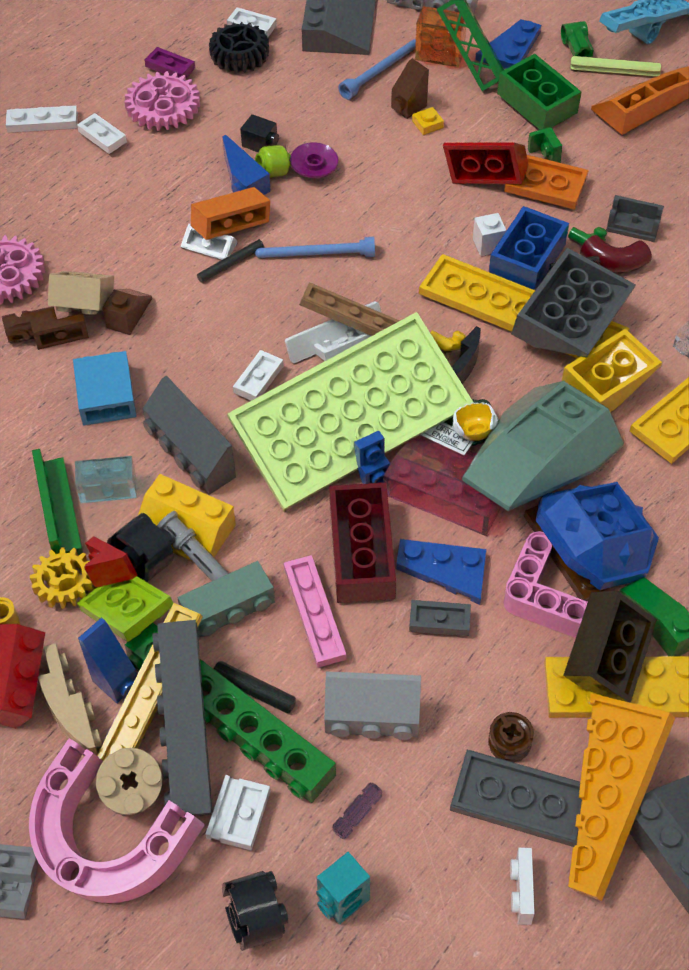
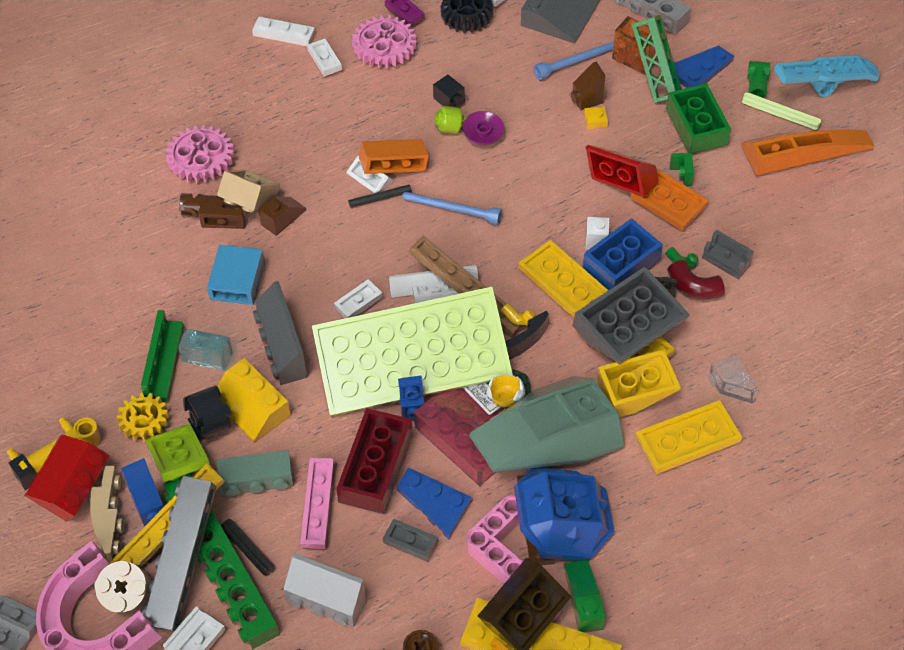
camera: 20 degrees right, 0 degrees up
(107, 564) = (176, 418): red slope -> none
(185, 540) = (241, 416): light grey pin -> none
(243, 169) = (422, 122): blue slope -> none

